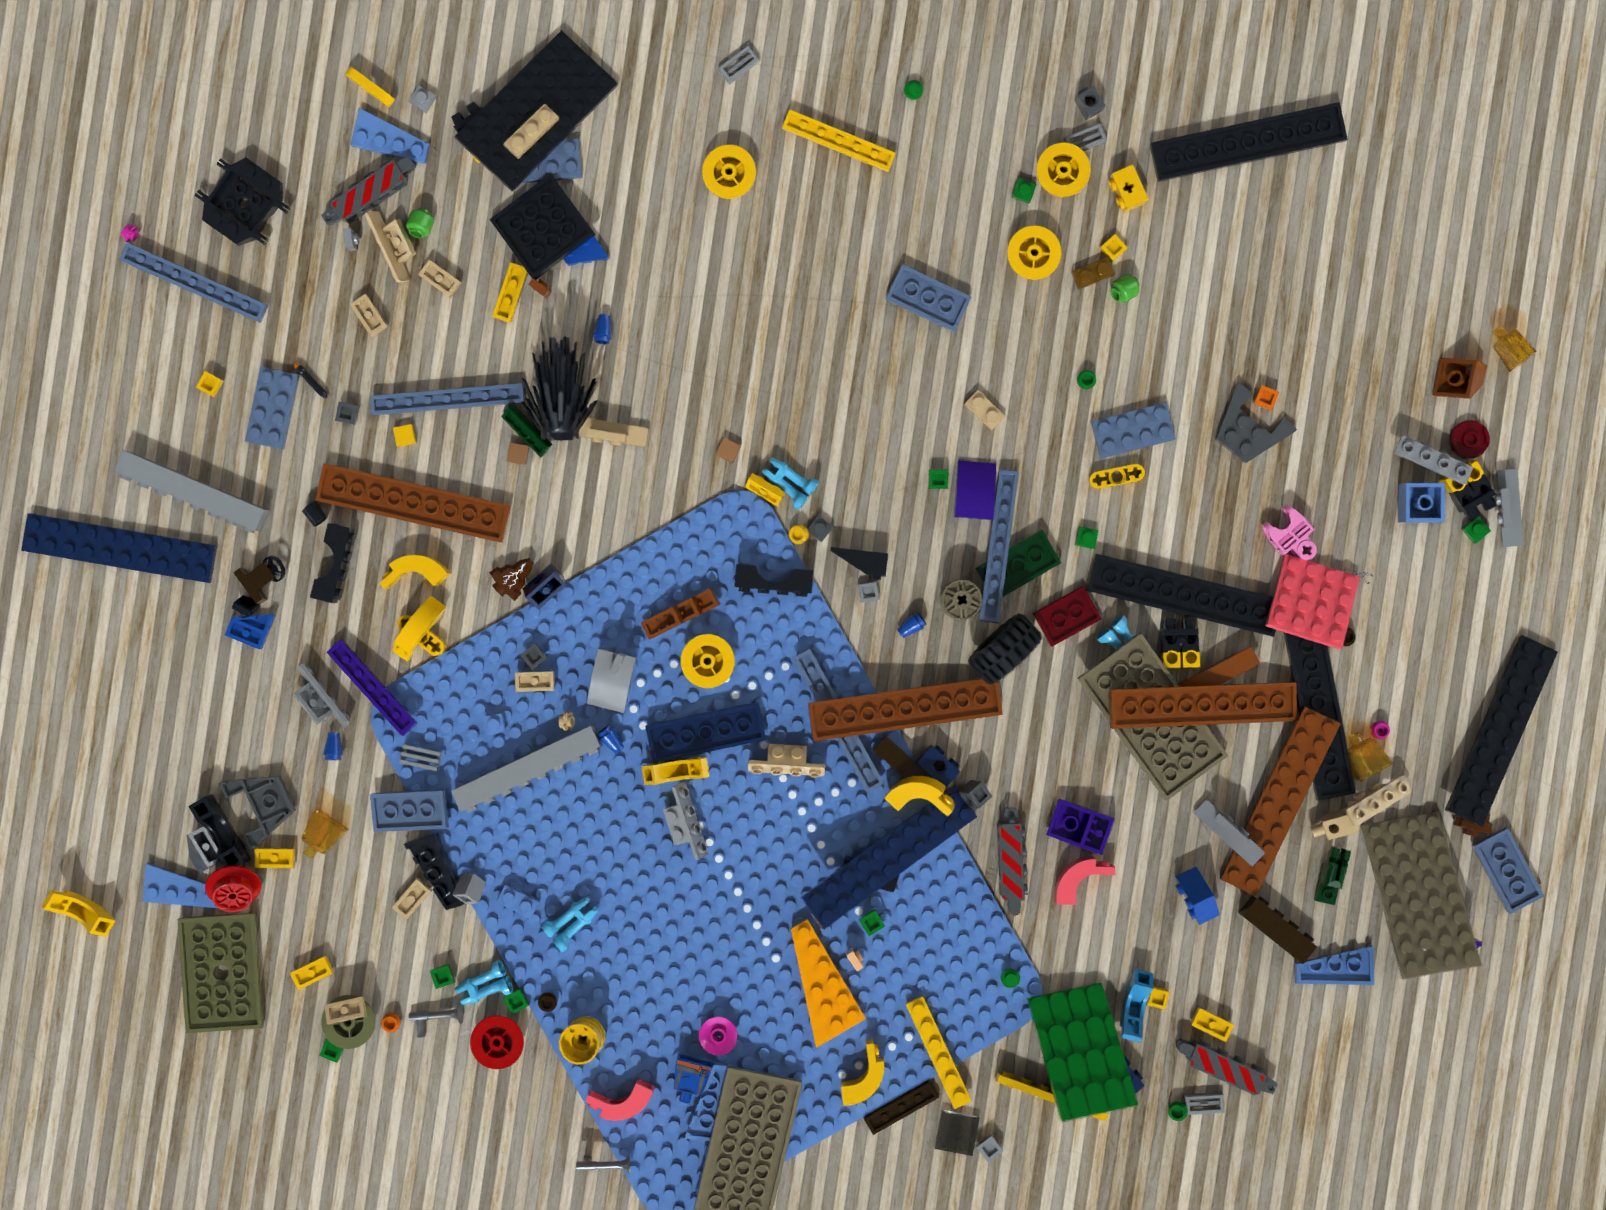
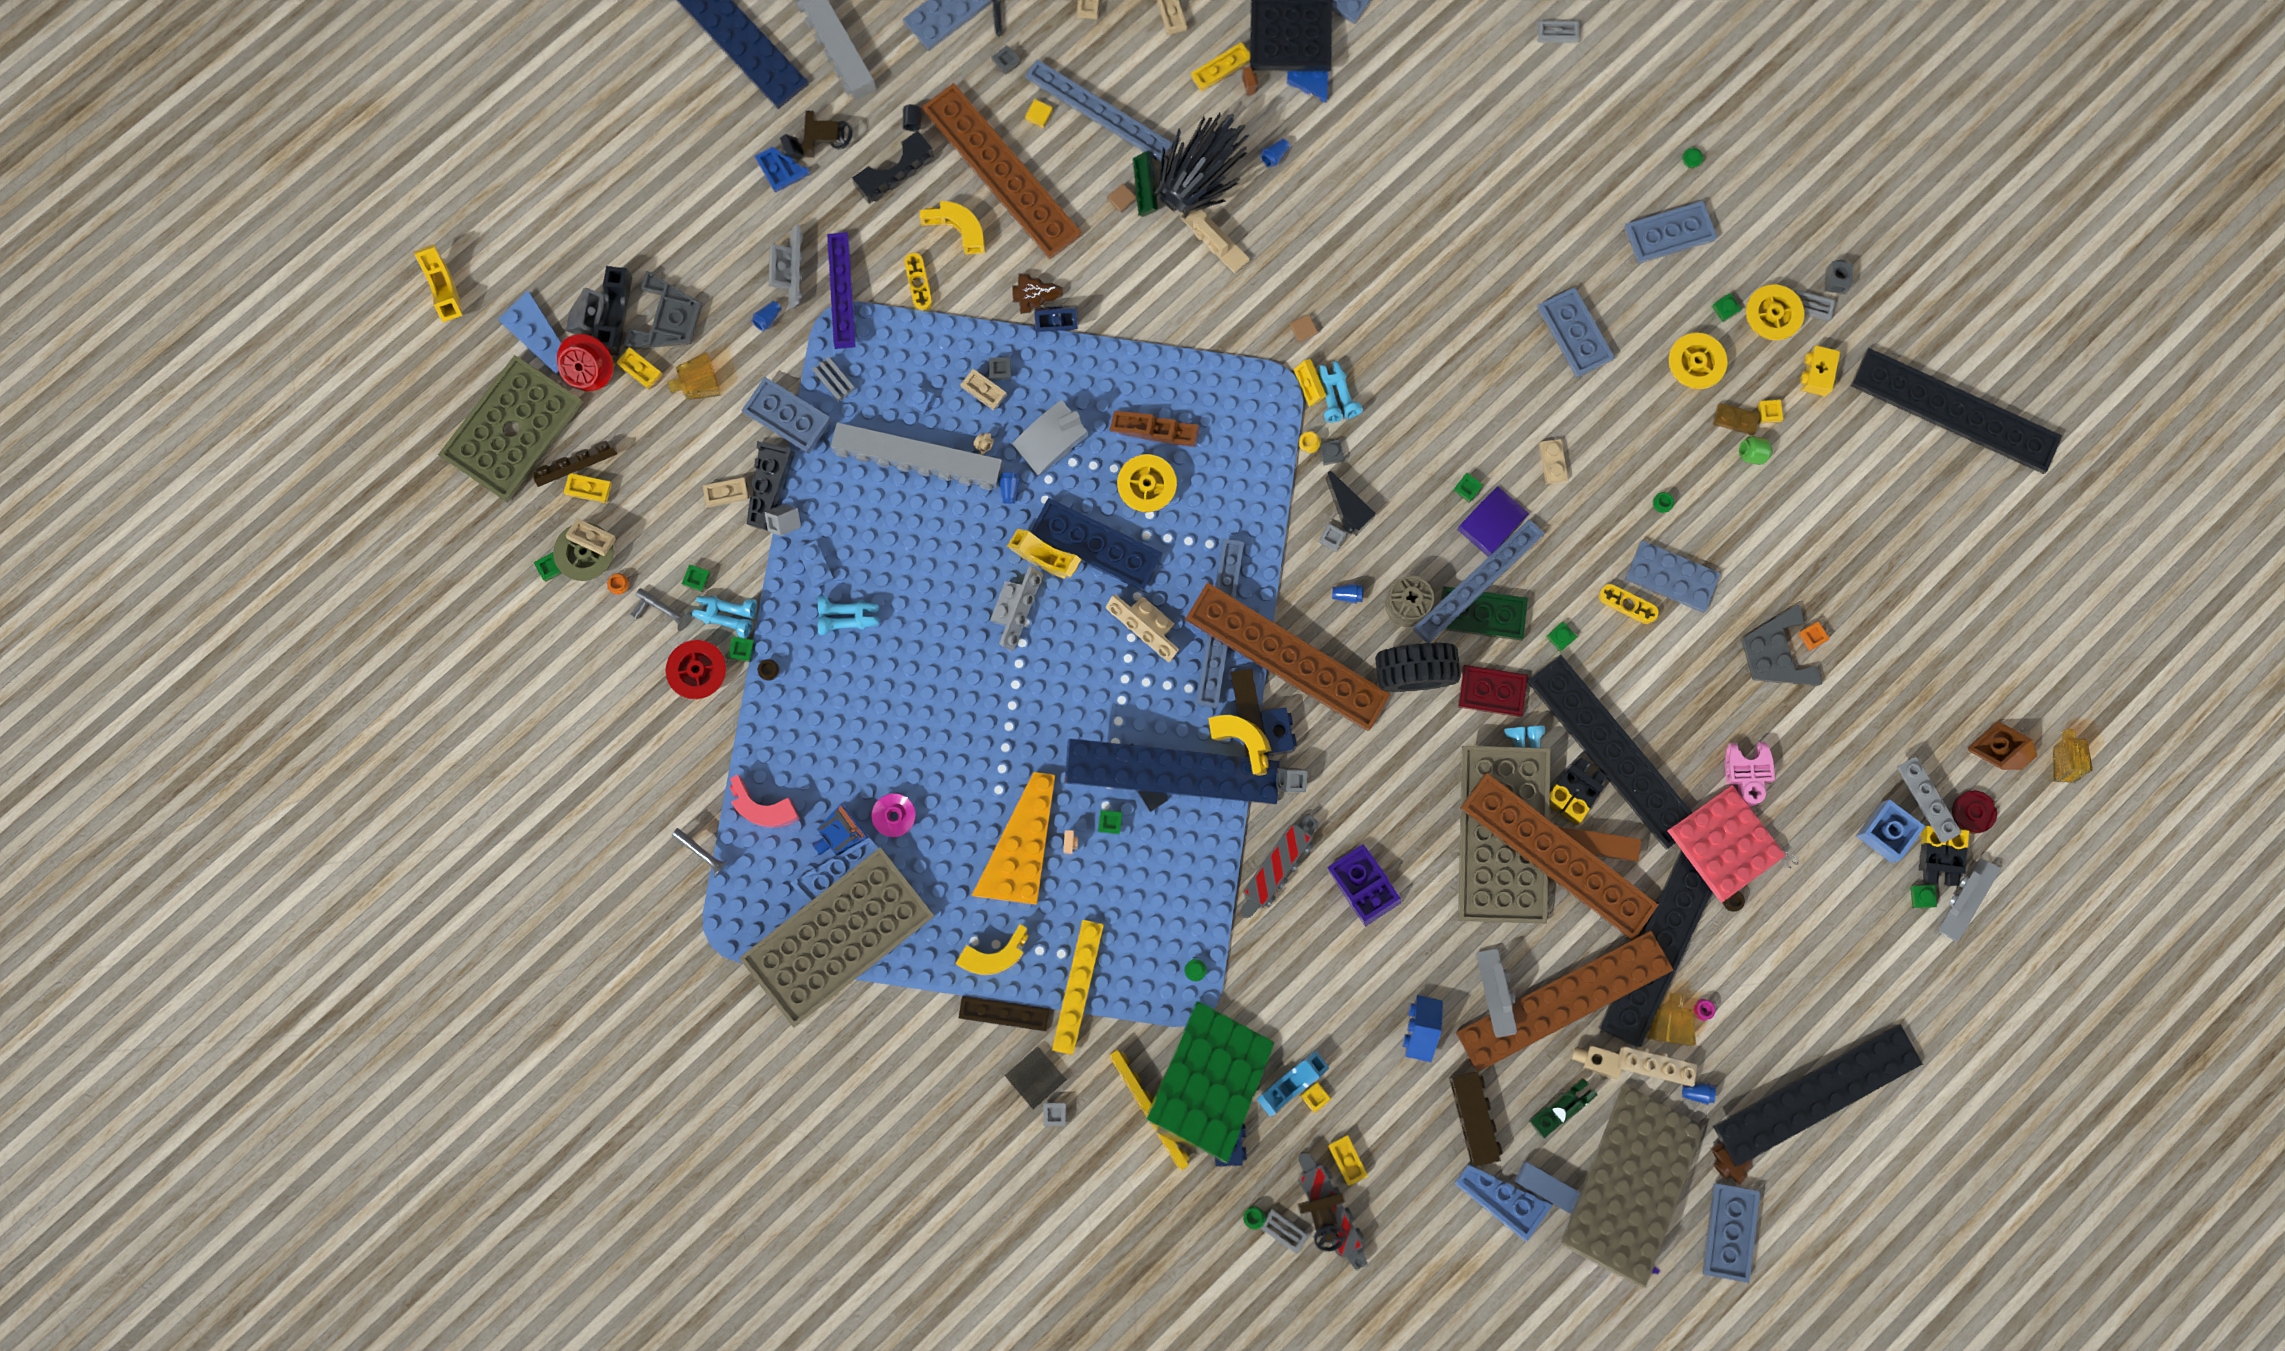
camera: 40 degrees right, 10 degrees down
(287, 962) = (575, 463): none -> dark brown plate
(417, 627) = (918, 269): yellow arch -> none
(574, 1047) = (764, 714): yellow wheel -> none
(726, 159) = (1484, 104): yellow piece -> none
(749, 577) = (1277, 478): black arch -> none
(838, 140) = (1597, 151): yellow plate -> none
(940, 163) = (1670, 232): none -> sand blue plate
(1073, 873) = (1326, 921): coral arch -> none
(1227, 1079) = (1325, 1220): none -> dark brown piece
(1361, 937) = (1547, 1187): none -> sand blue beam
(1420, 790) = (1700, 1093): none -> blue cone

